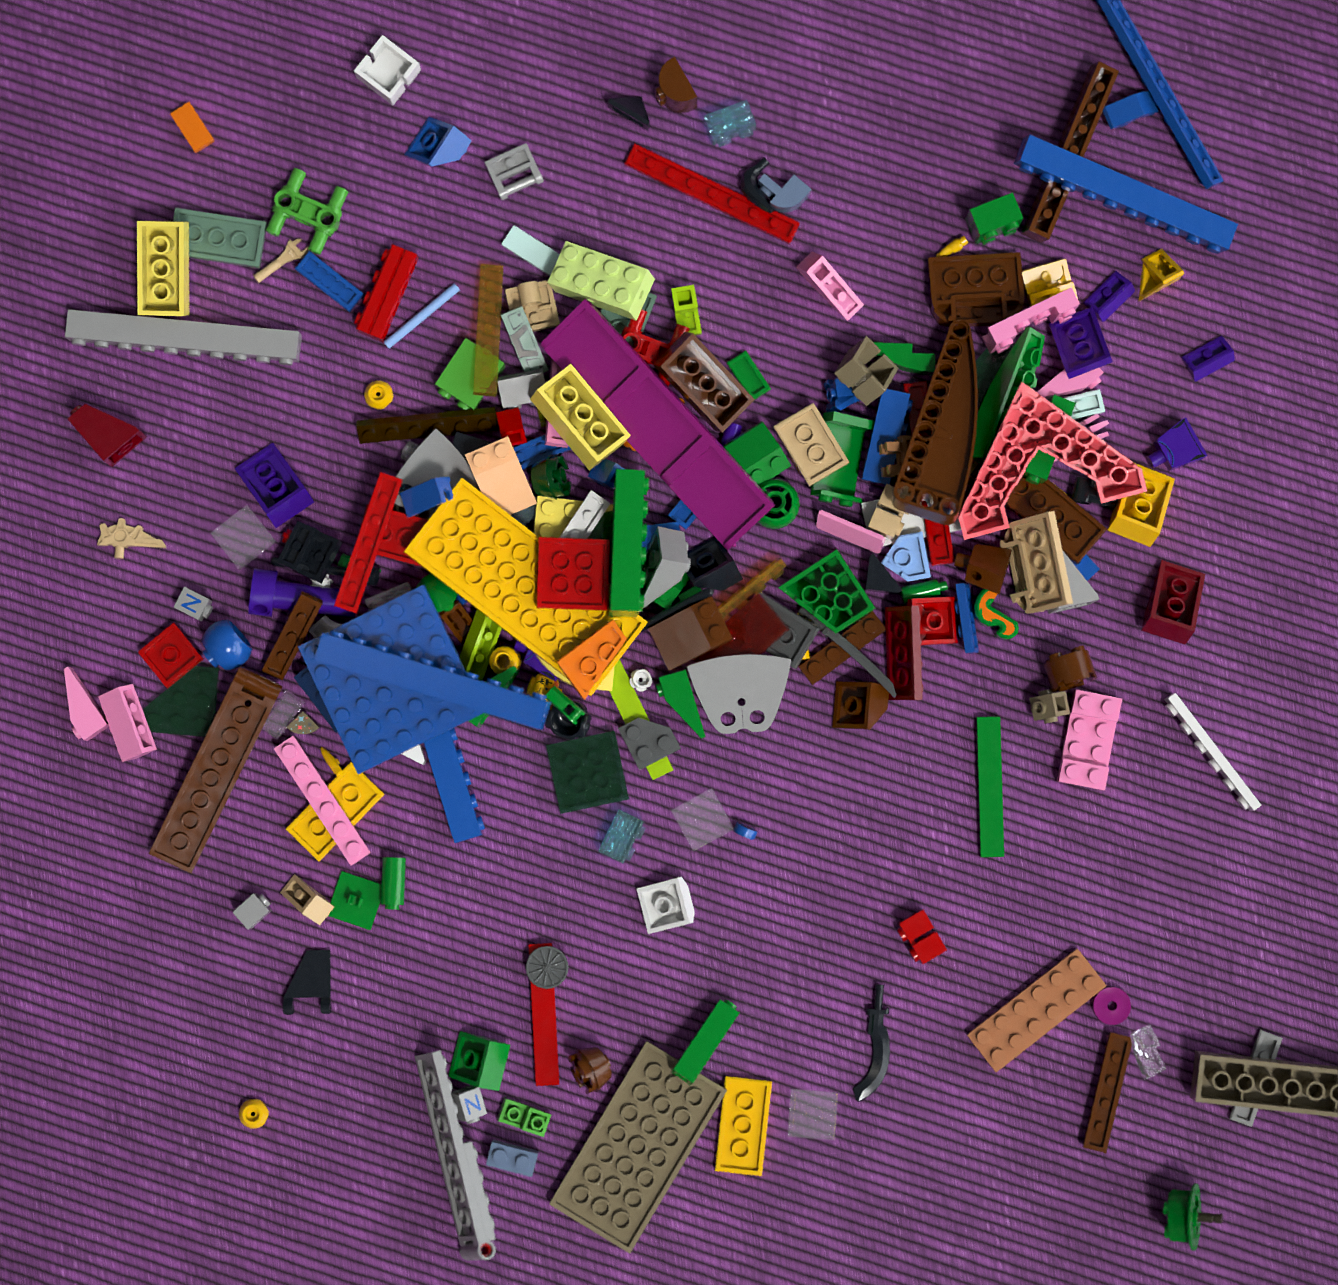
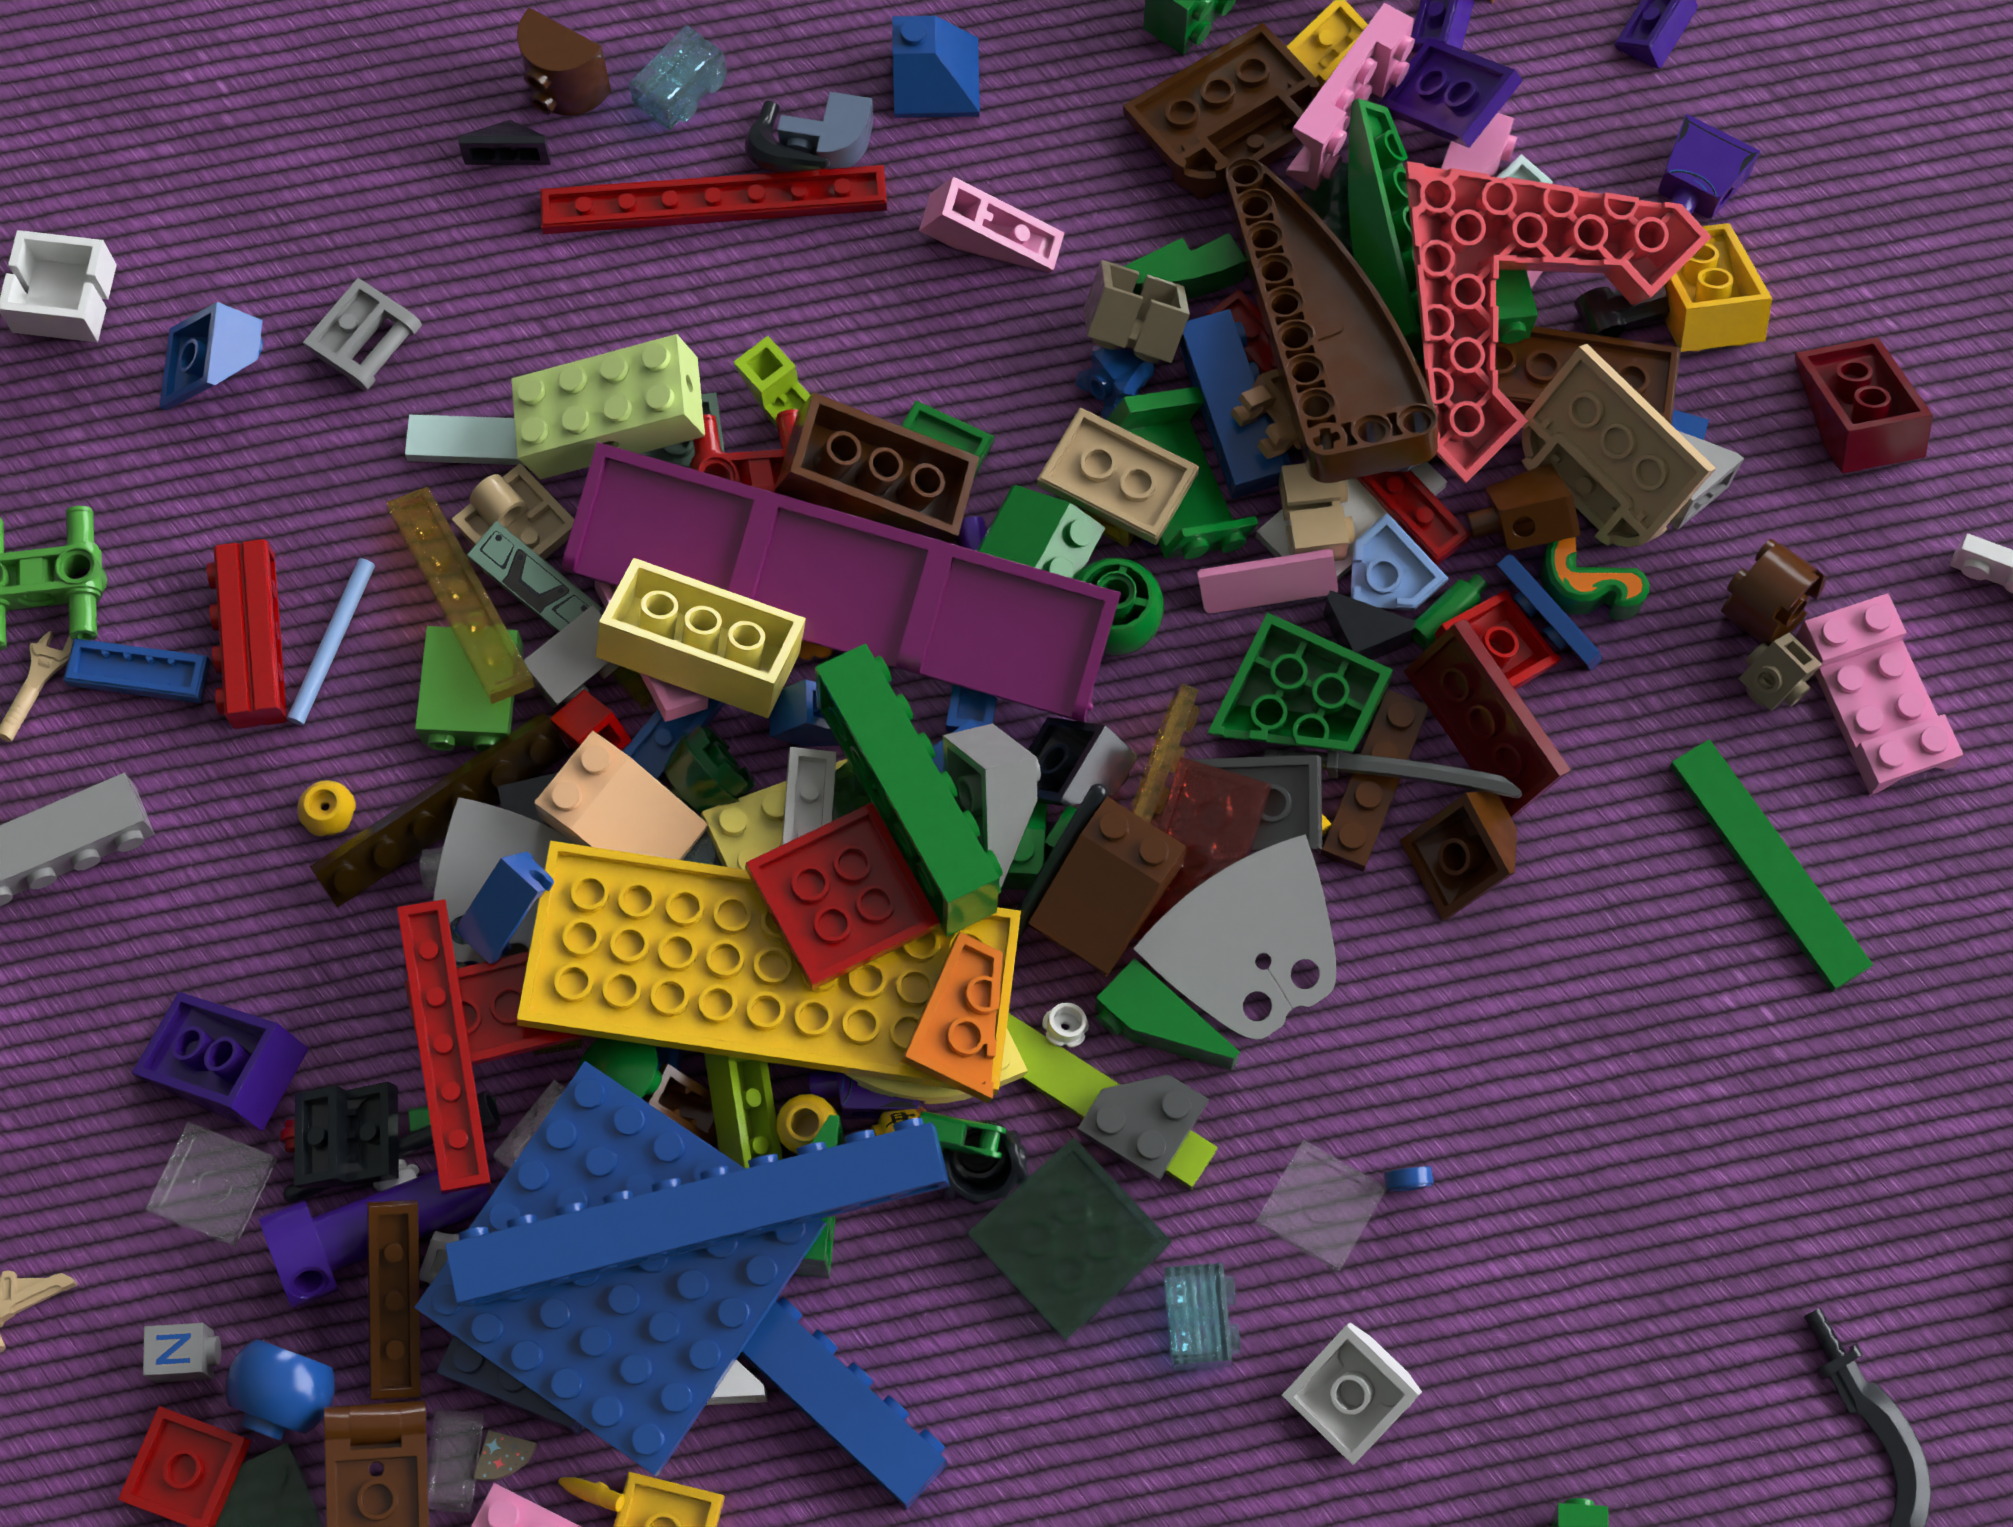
camera: 30 degrees left, 15 degrees down
(852, 187) = (934, 68): none -> blue slope
(925, 948) = (1851, 1194): red piece -> none
(953, 247) = (1153, 70): yellow piece -> none

